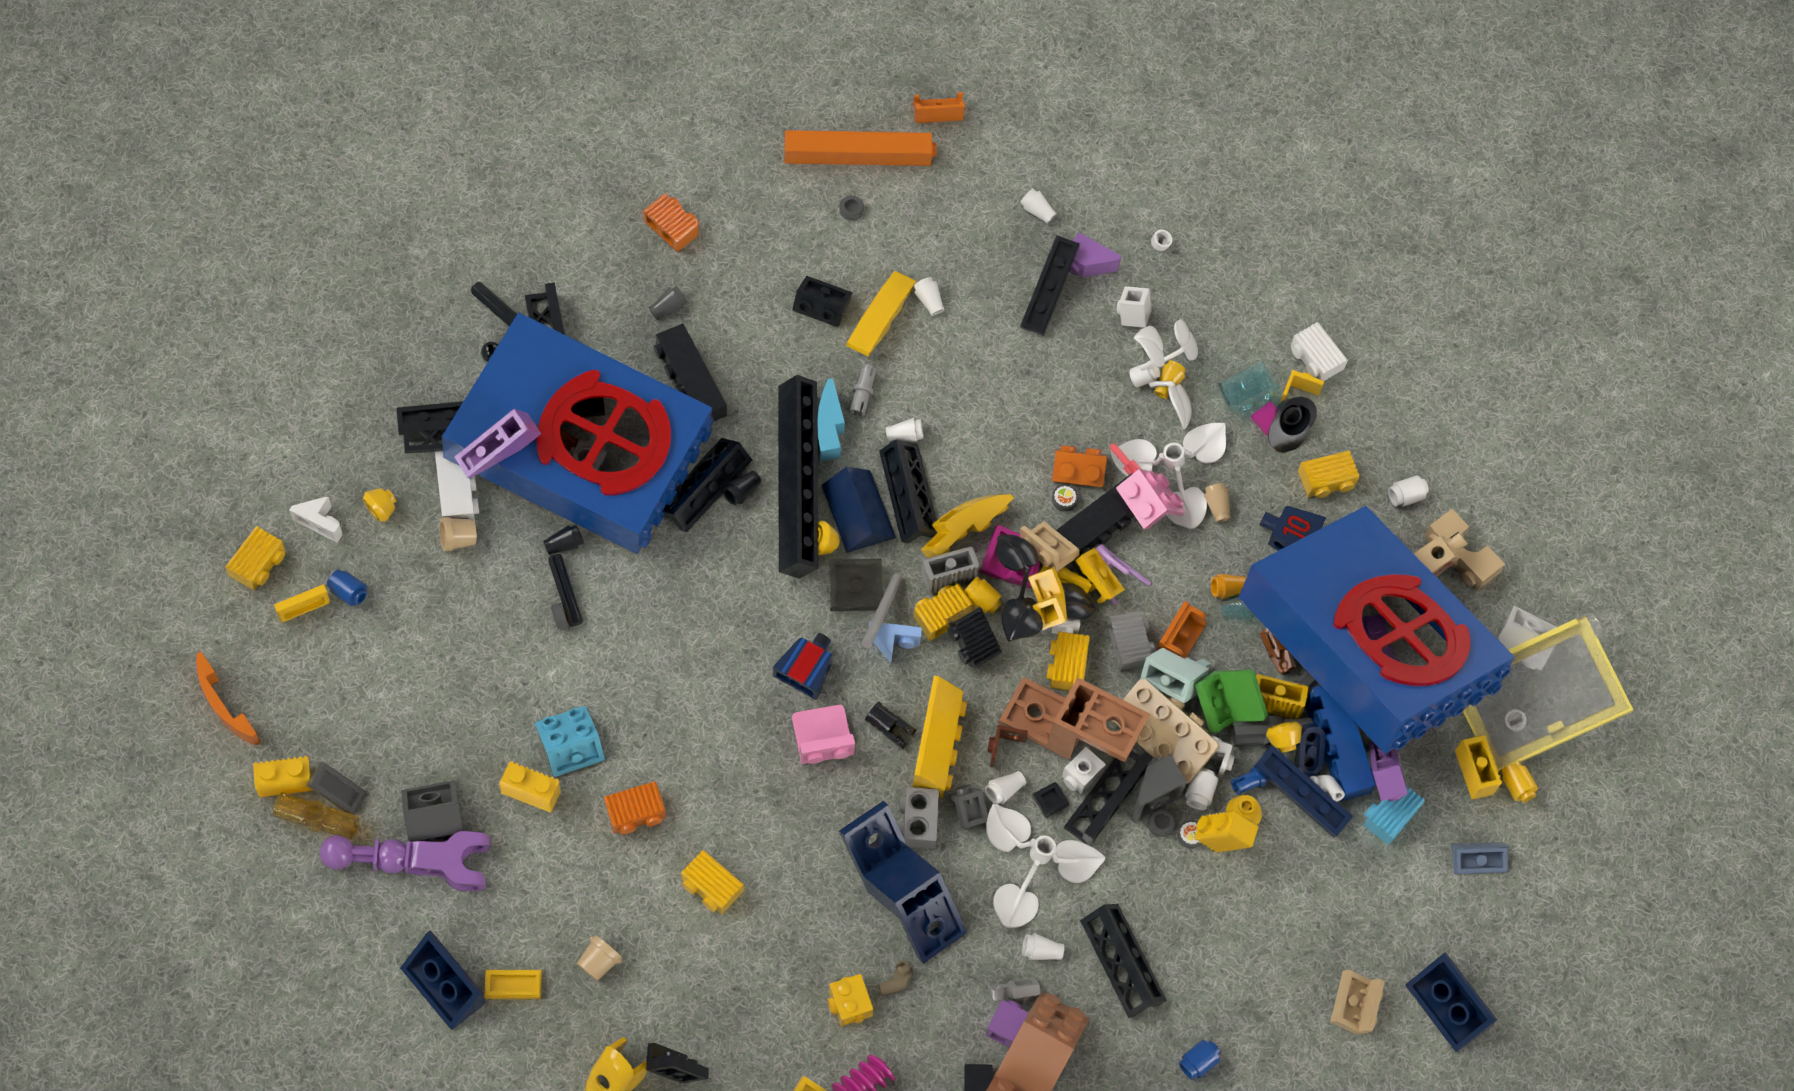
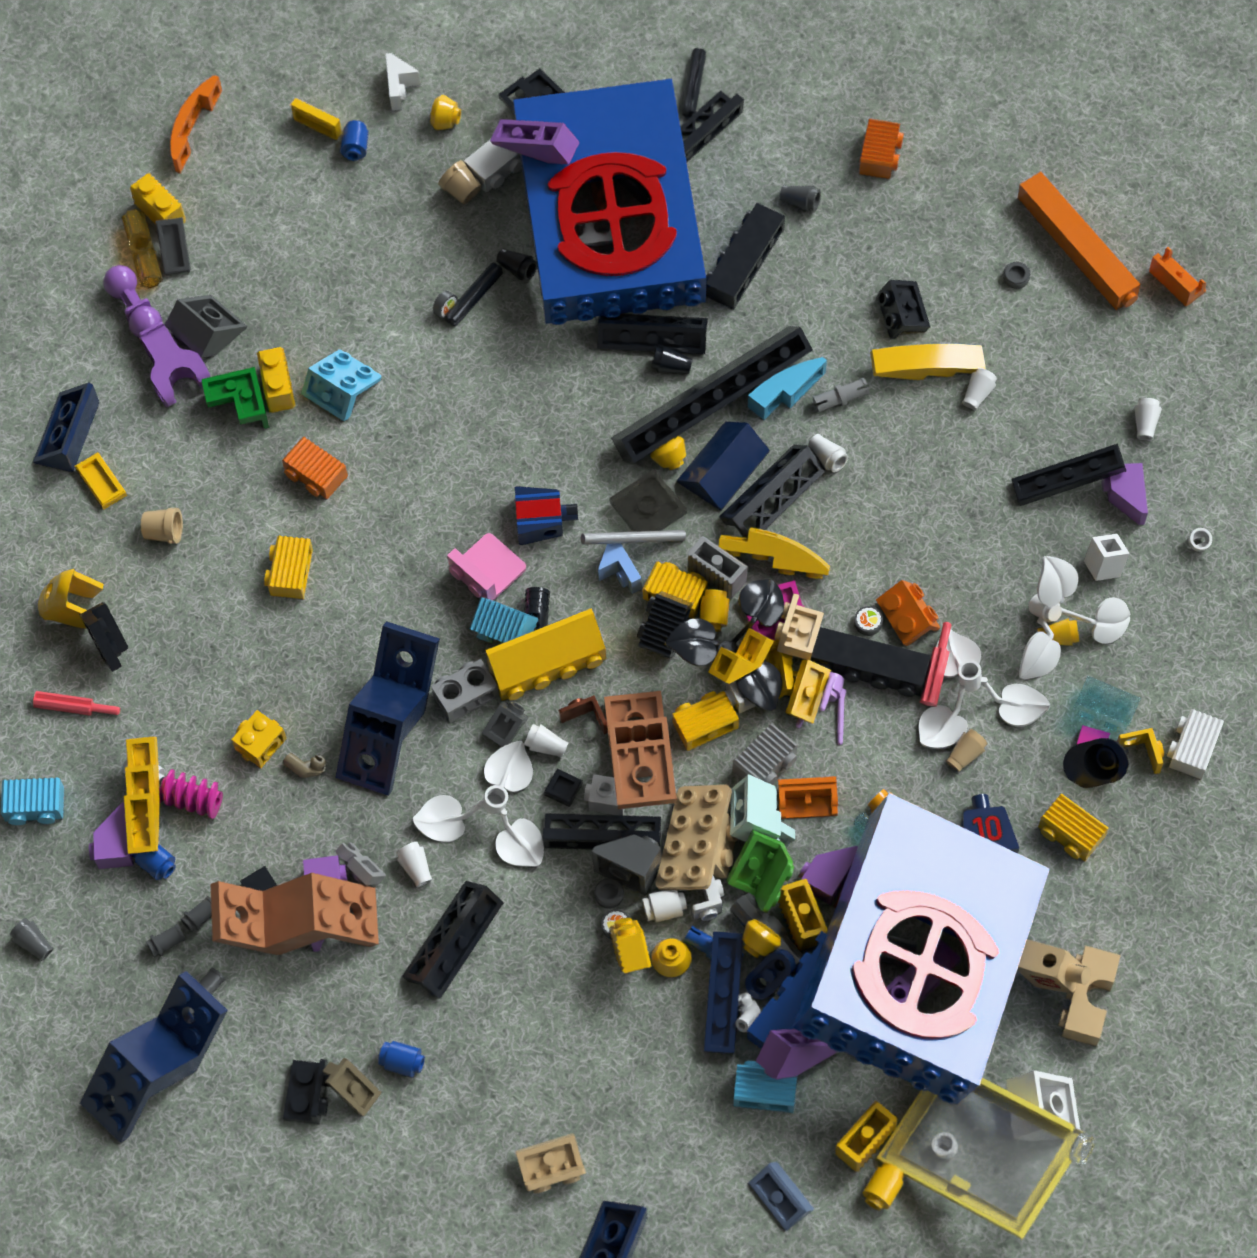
camera: 65 degrees right, 0 degrees up
(256, 558) = (330, 63): yellow brick -> none
(524, 816) = (240, 388): none -> green panel
(886, 753) = (500, 622): none -> medium azure brick
(1150, 497) = (919, 684): bright pink bracket -> none
(1256, 654) = (828, 873): none -> medium lavender slope
(1408, 491) = (1113, 909): white brick -> none

